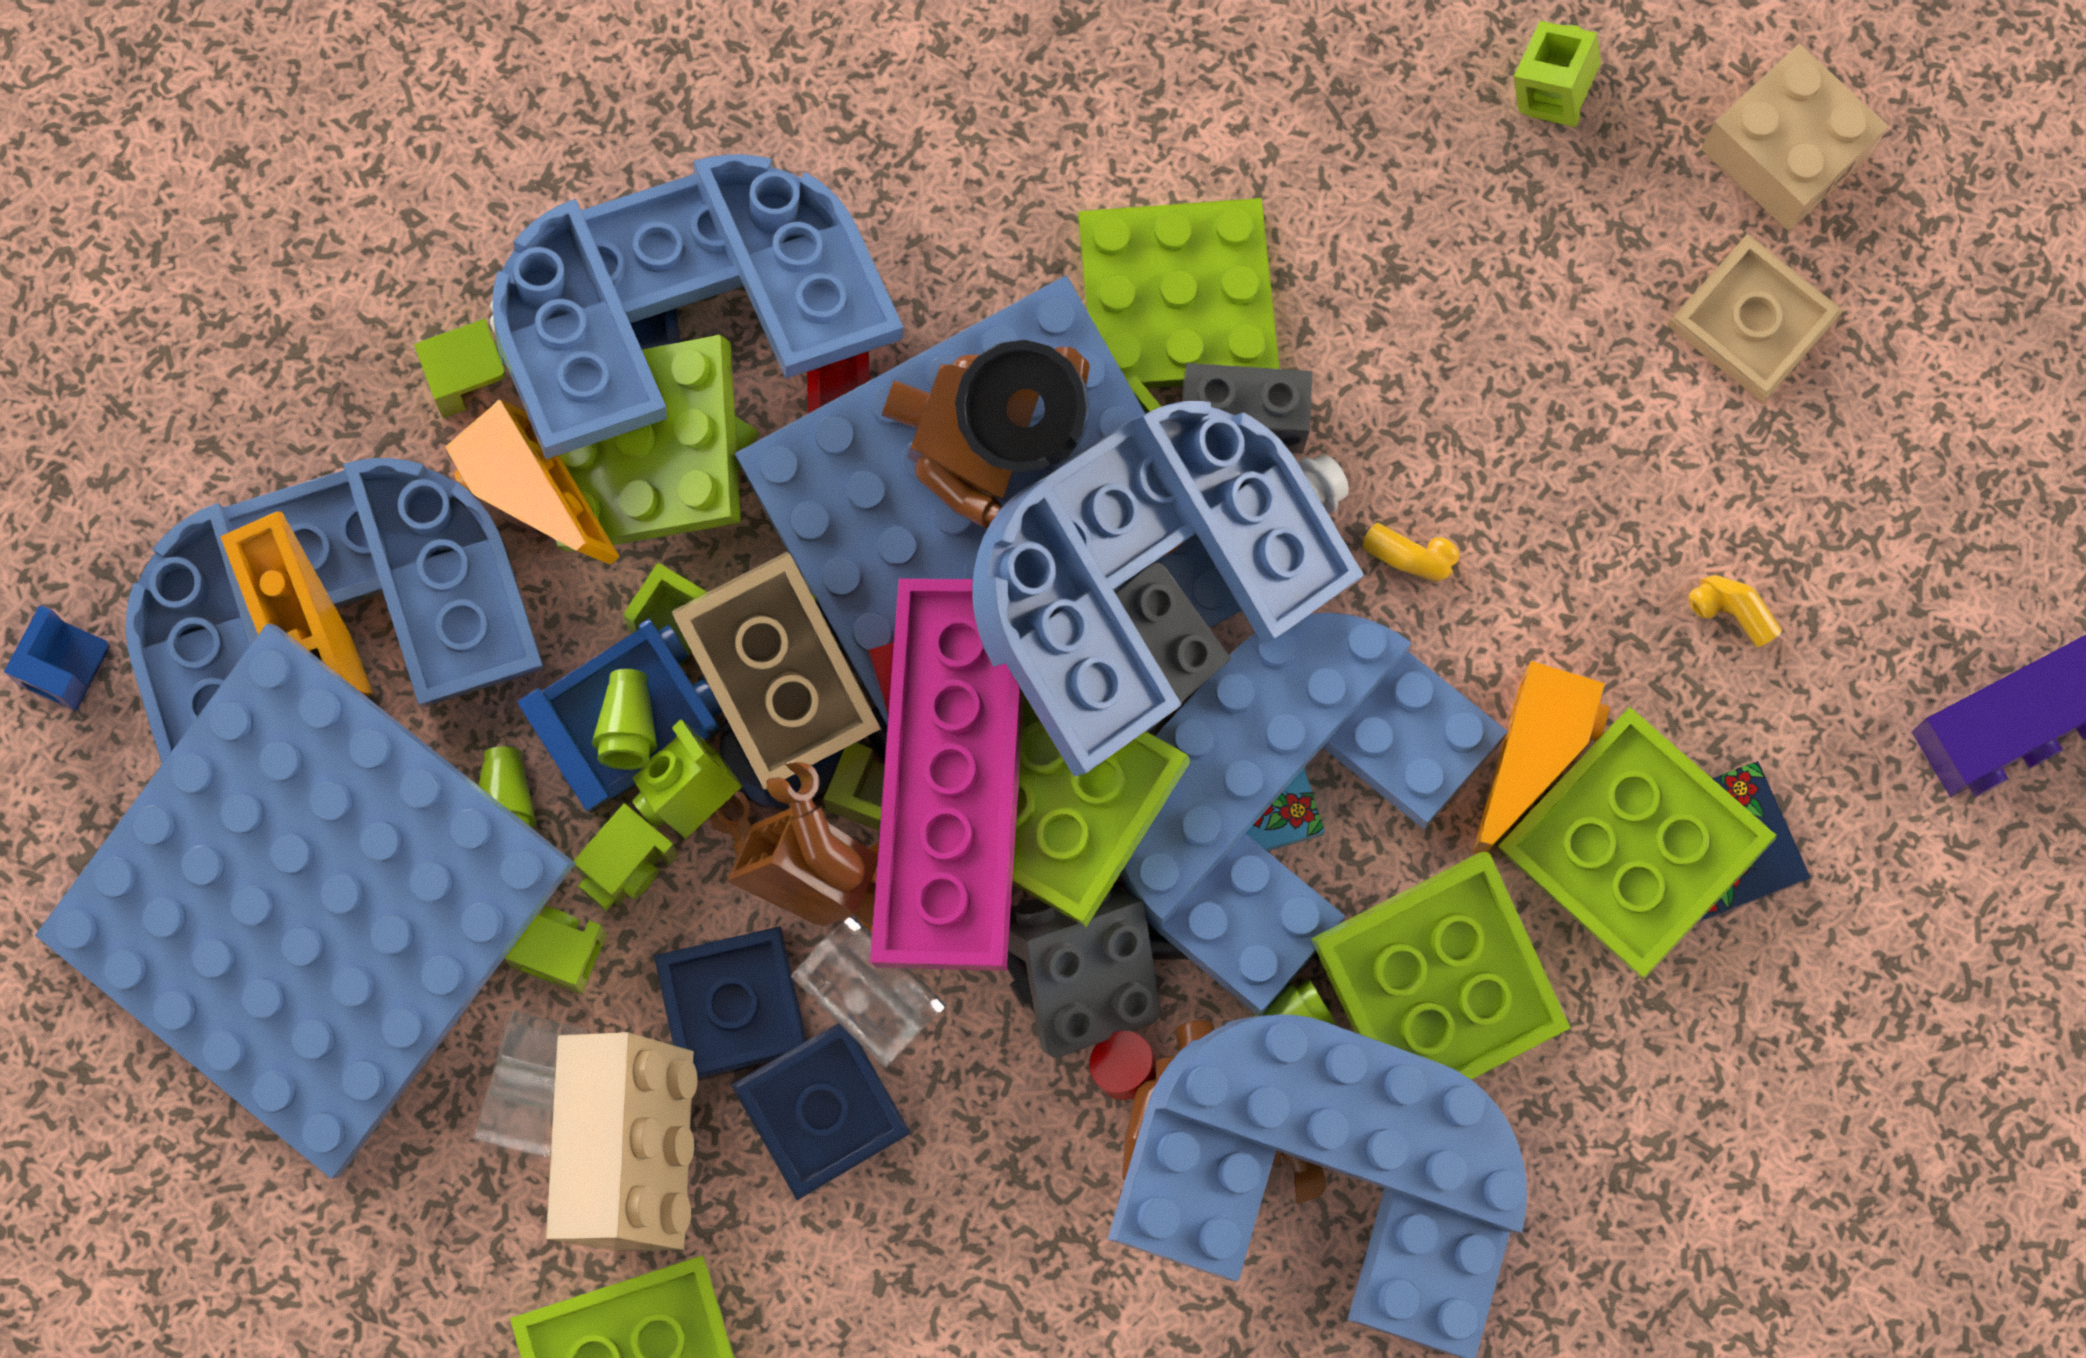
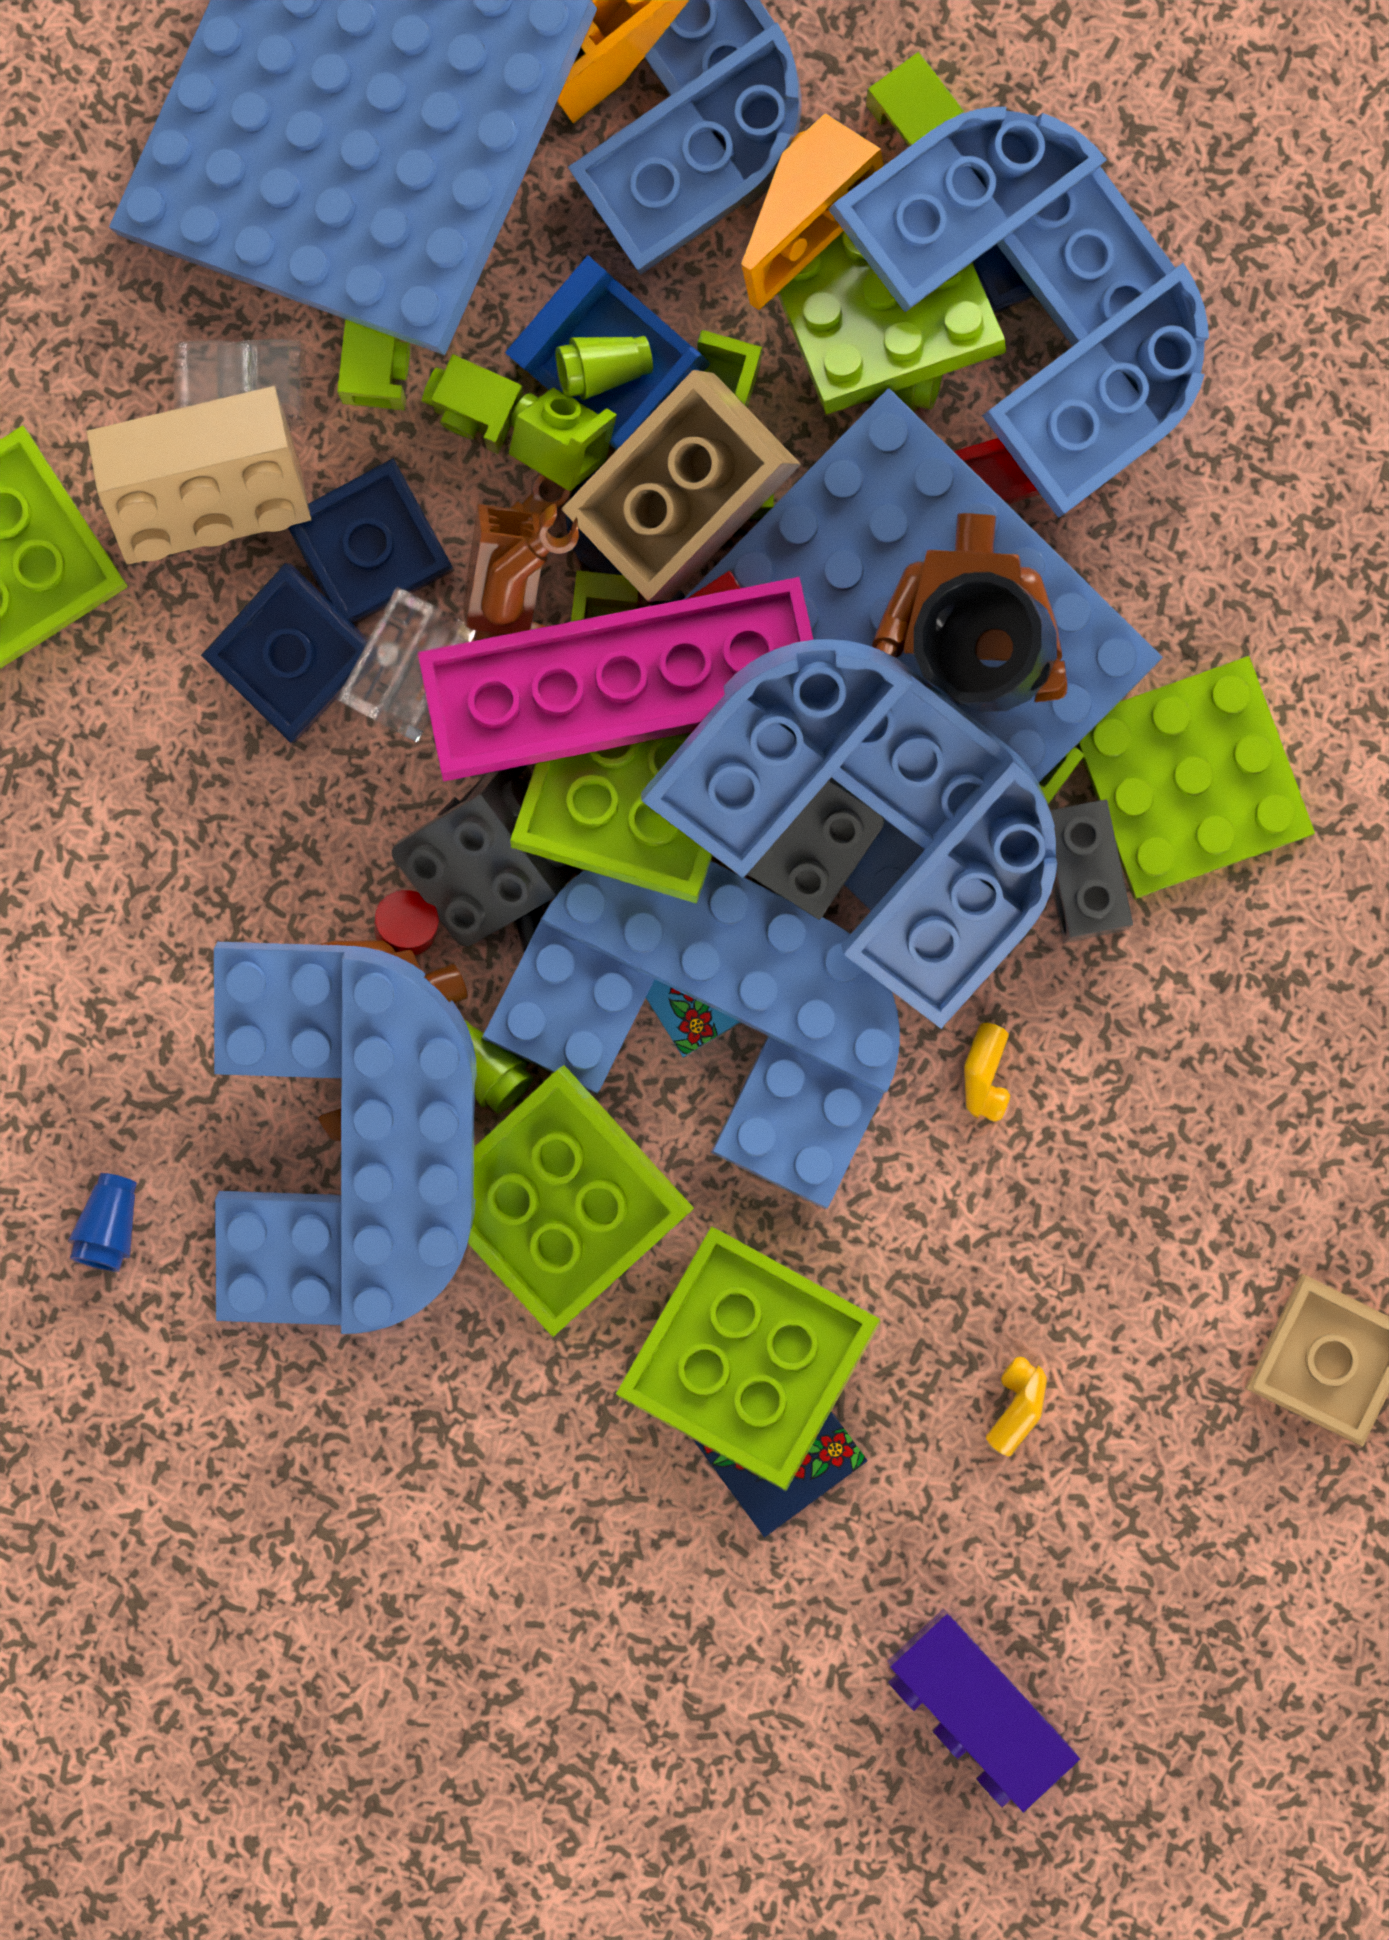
camera: 80 degrees right, 10 degrees up
(506, 781) = (510, 274): lime cone -> none
(1326, 479) = (1030, 965): white plate -> none
(1545, 735) = (828, 1244): light orange slope -> none

